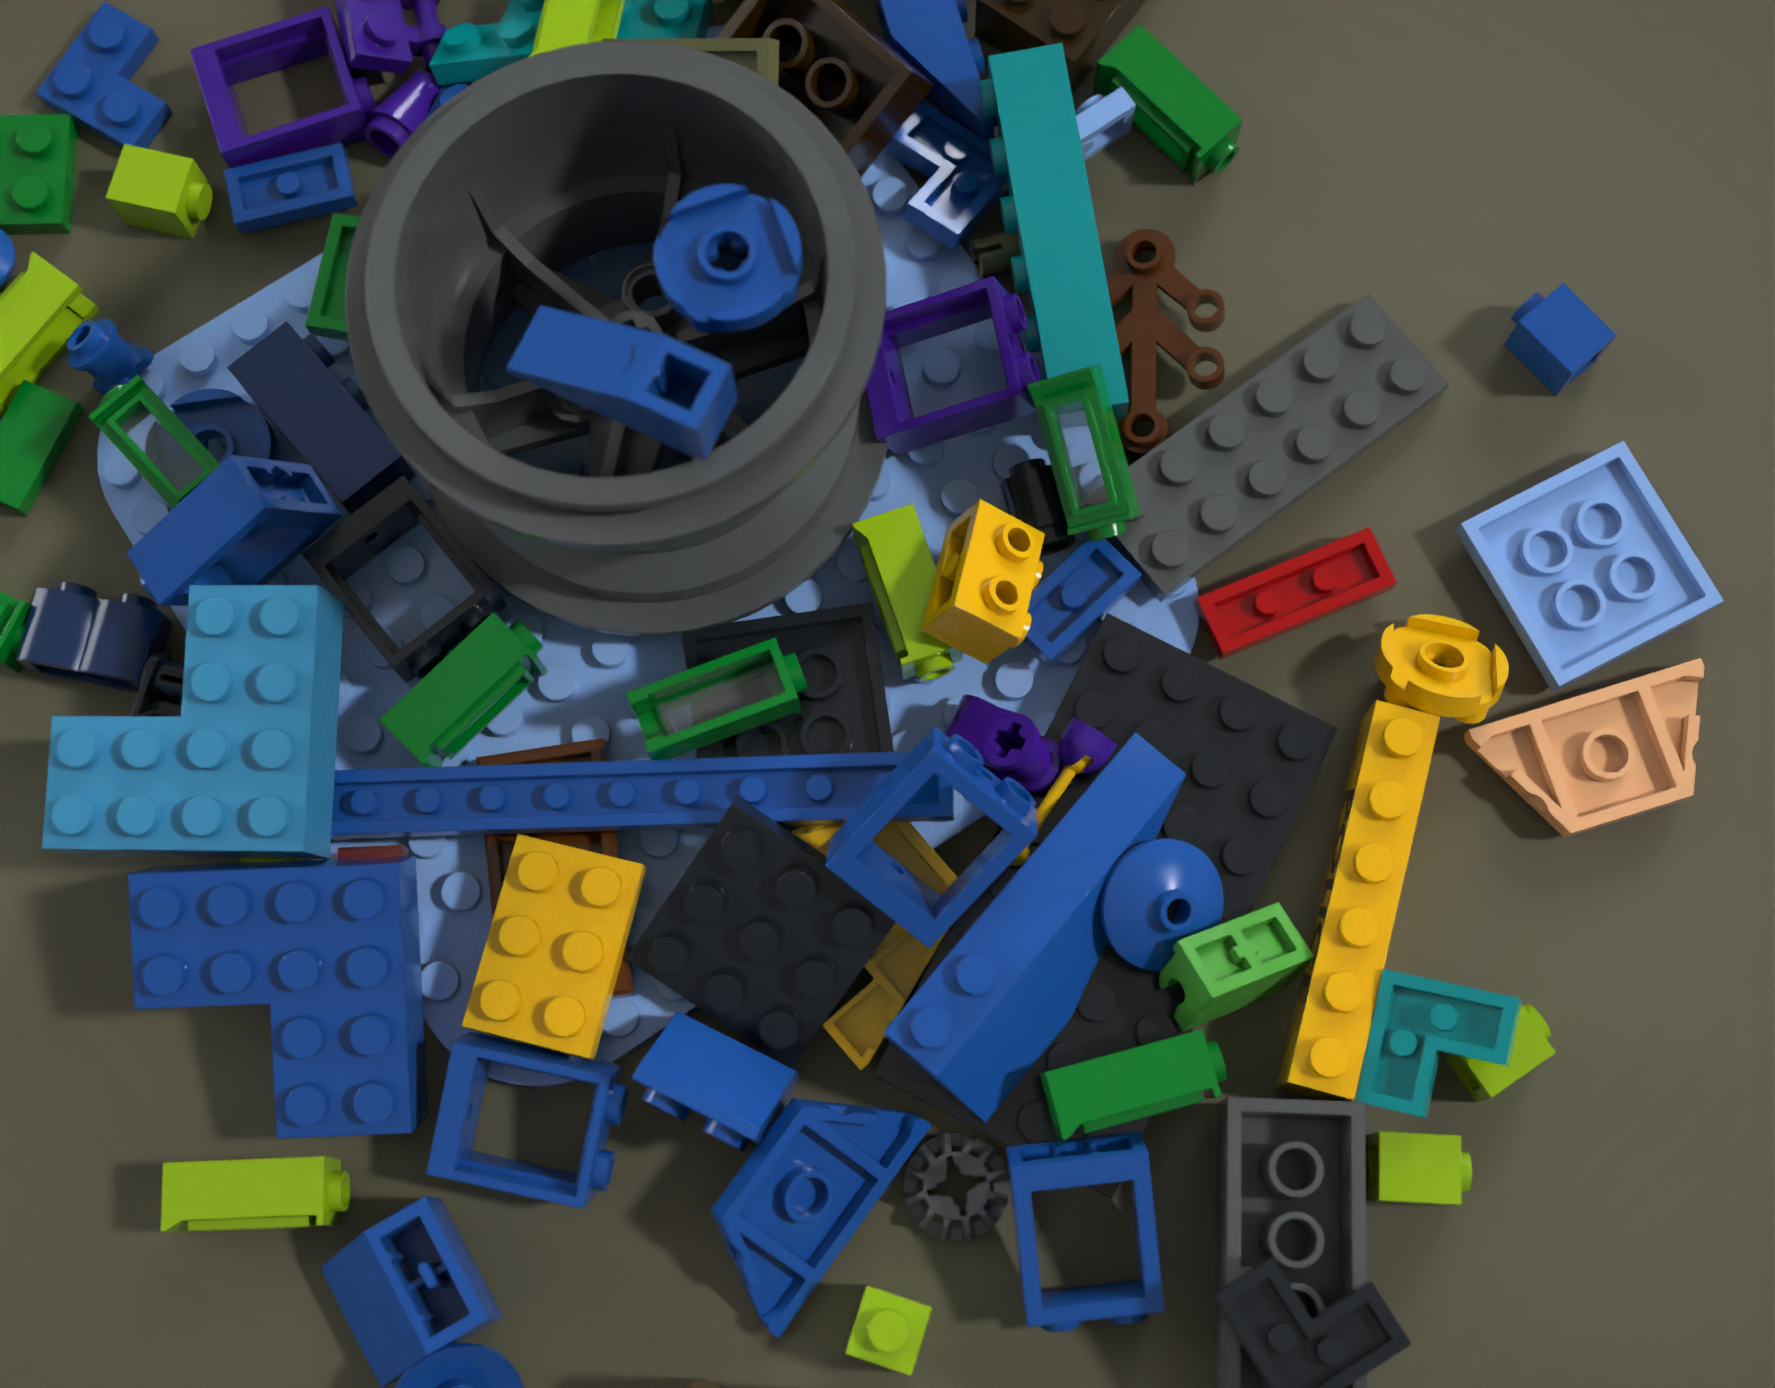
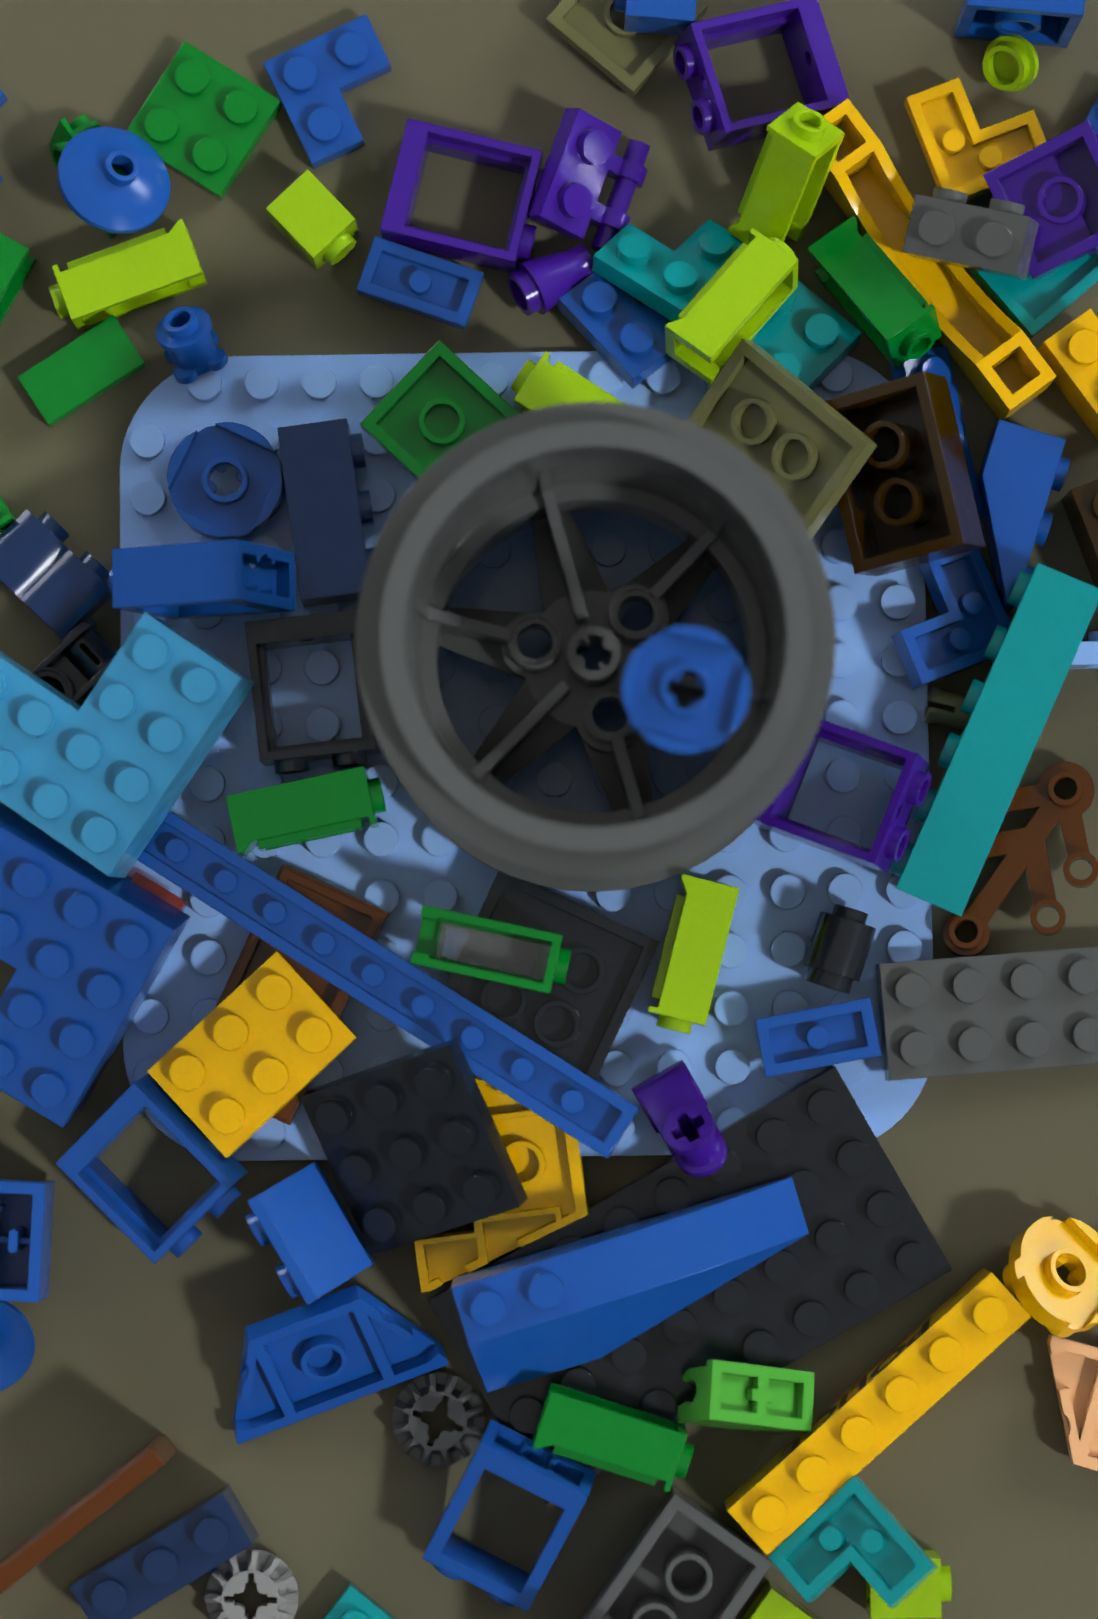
camera: 30 degrees right, 10 degrees up
(154, 440) = (189, 471): green window -> none
(629, 377) = (549, 736): blue slope -> none
(888, 1330) = (321, 1492): lime brick -> none
(890, 884) = (530, 1185): blue window -> none
(984, 582) = (751, 990): yellow brick -> none
(1082, 752) = (739, 1168): dark purple hinge -> none
(1085, 452) = (896, 940): green window -> none
(1144, 886) = (721, 1302): blue dish -> none
(1295, 593) = (995, 1141): red plate -> none

